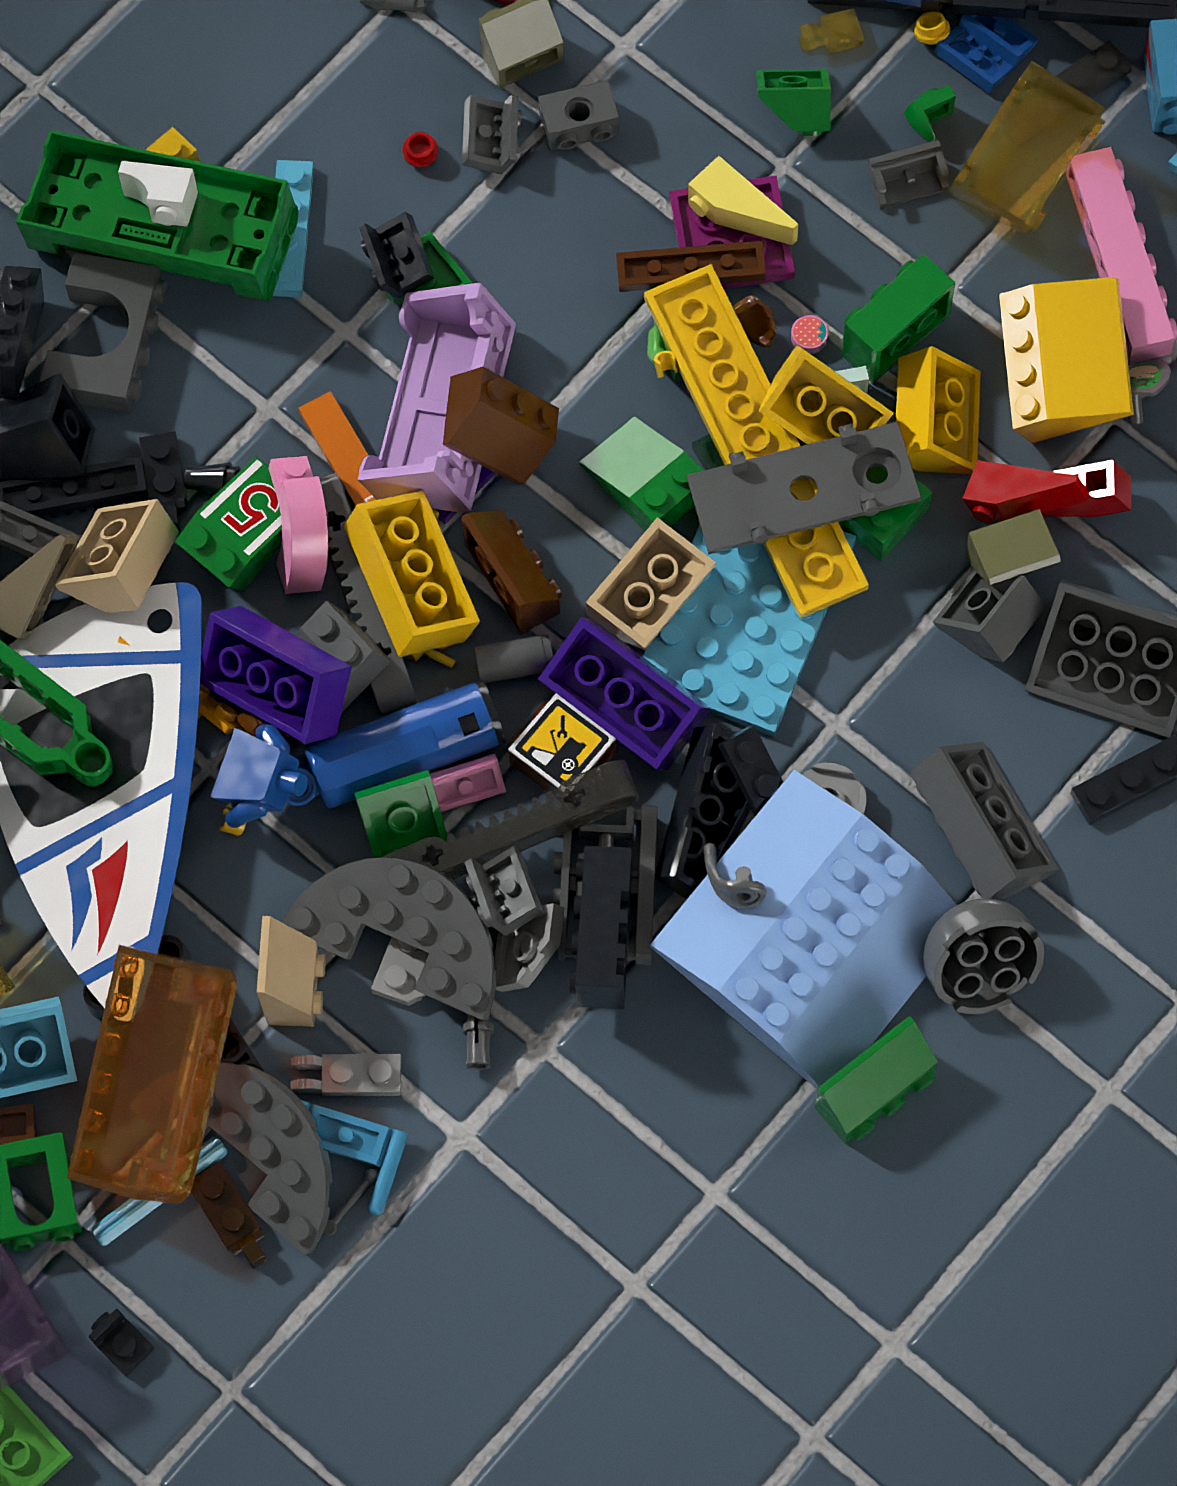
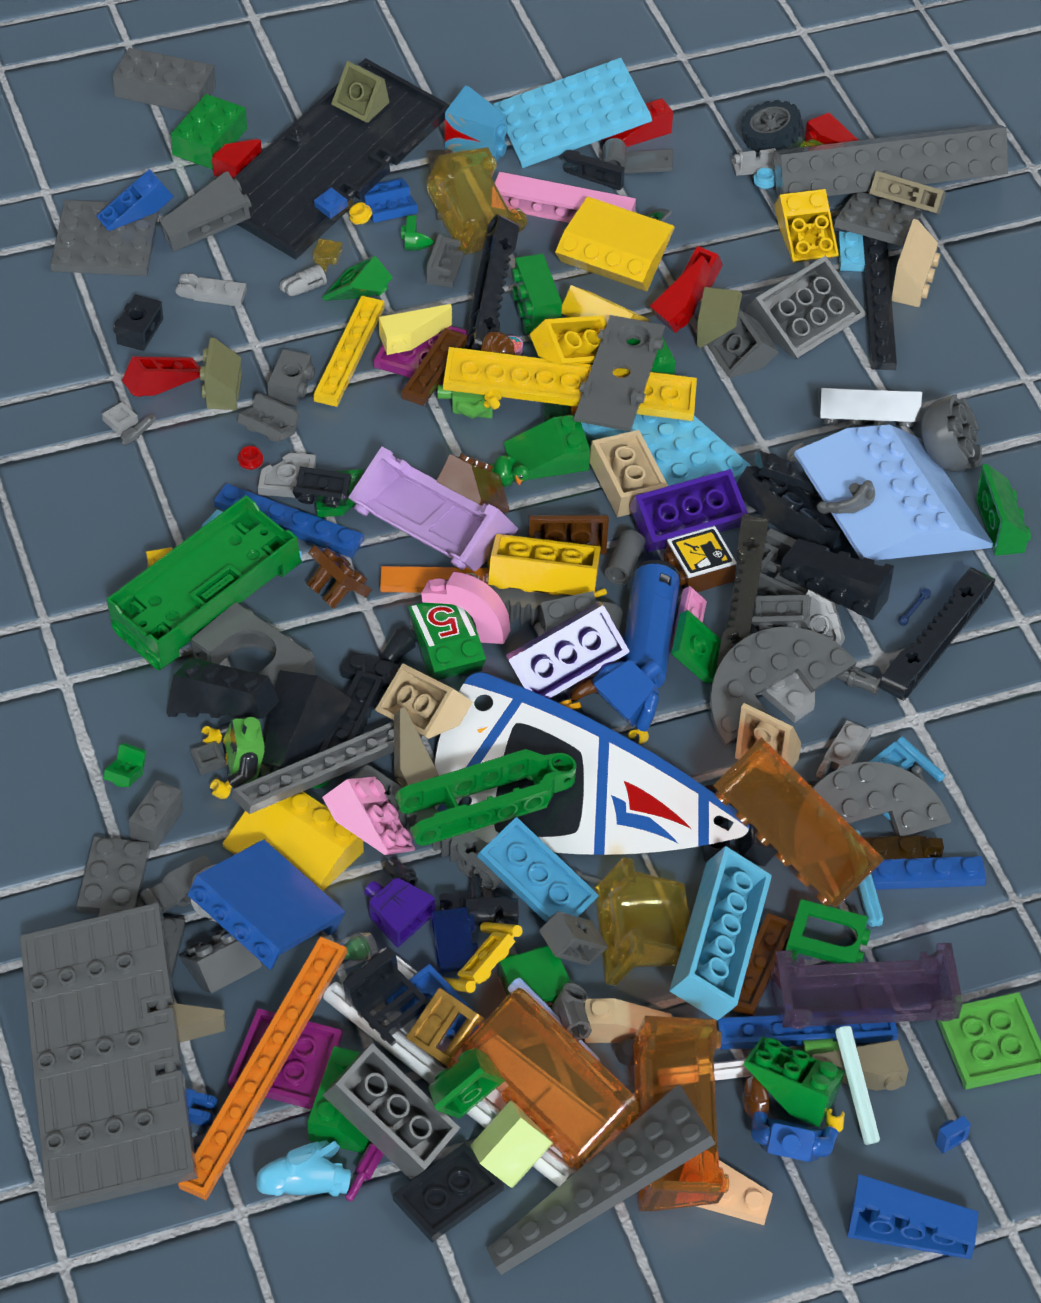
camera: 65 degrees left, 20 degrees down
(120, 1341) = (960, 936): black bracket -> none
(164, 189) = (201, 558): white arch -> none
(213, 1266) = (930, 873): none -> blue plate
(276, 351) = (339, 568): none -> reddish brown plate
(347, 257) = (301, 524): none -> blue plate
(430, 205) = (283, 476): none -> light grey plate
(571, 447) = (504, 467): none -> green animal
(673, 154) = (349, 351): none -> yellow plate
(686, 1051) = (924, 594): none -> dark blue hinge
(719, 1105) = (917, 660): none -> black gear
(761, 35) = (304, 281): none -> light grey hinge
(964, 216) = (498, 246): none -> black gear

